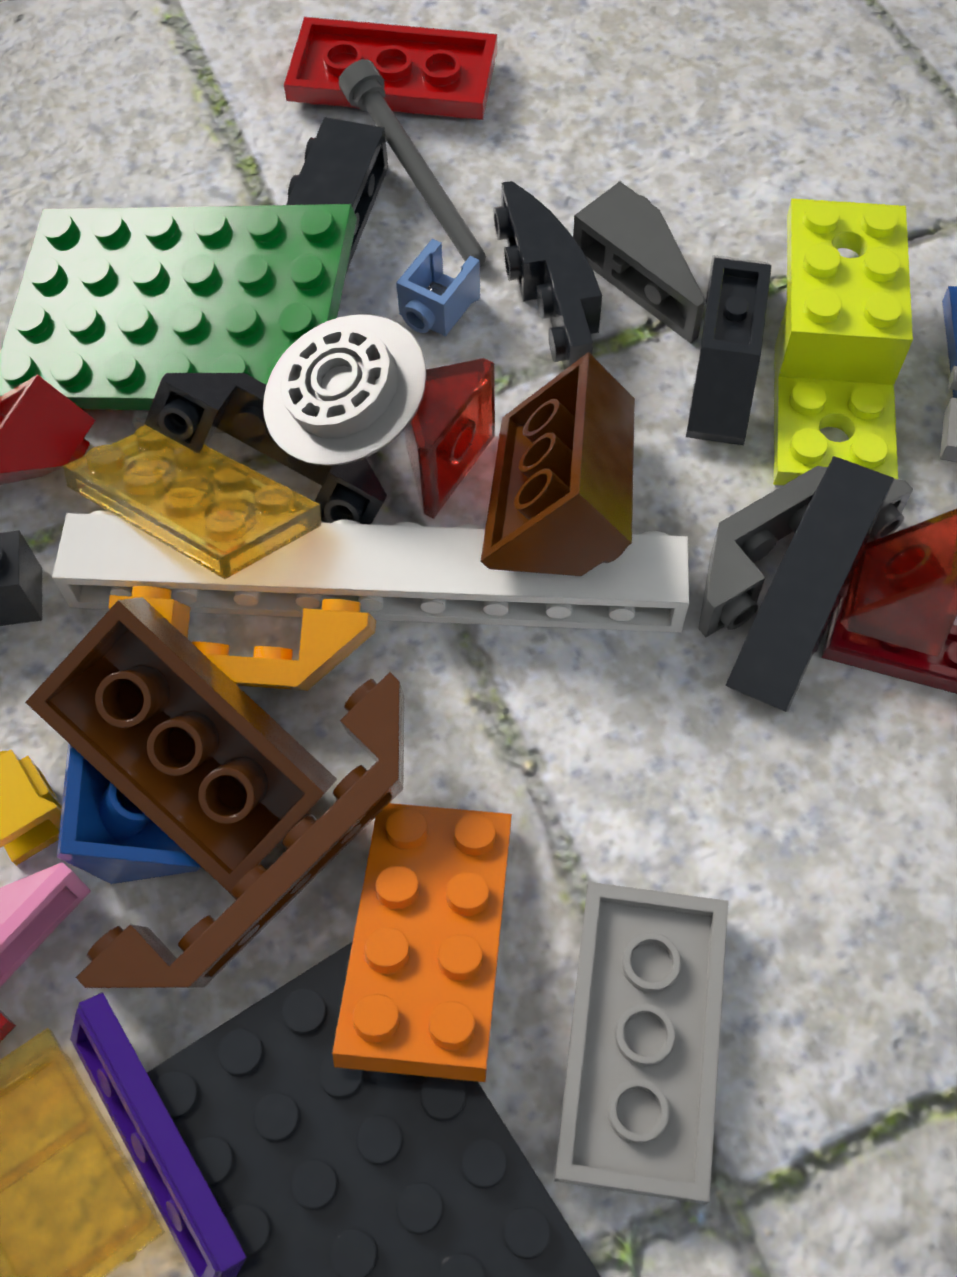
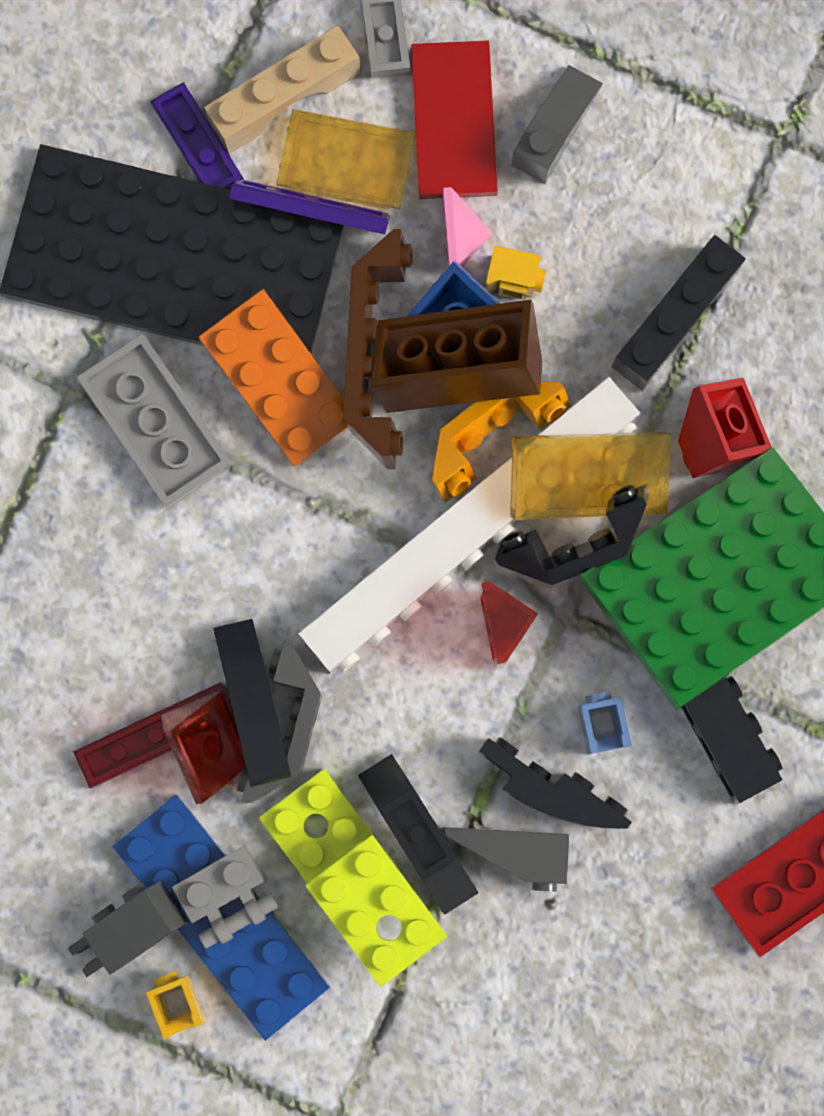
camera: 135 degrees right, 20 degrees up
(335, 375) = (561, 578): wheel -> none
(365, 89) = (781, 824): dark grey piece -> none
(563, 476) = (419, 650): reddish brown slope -> none

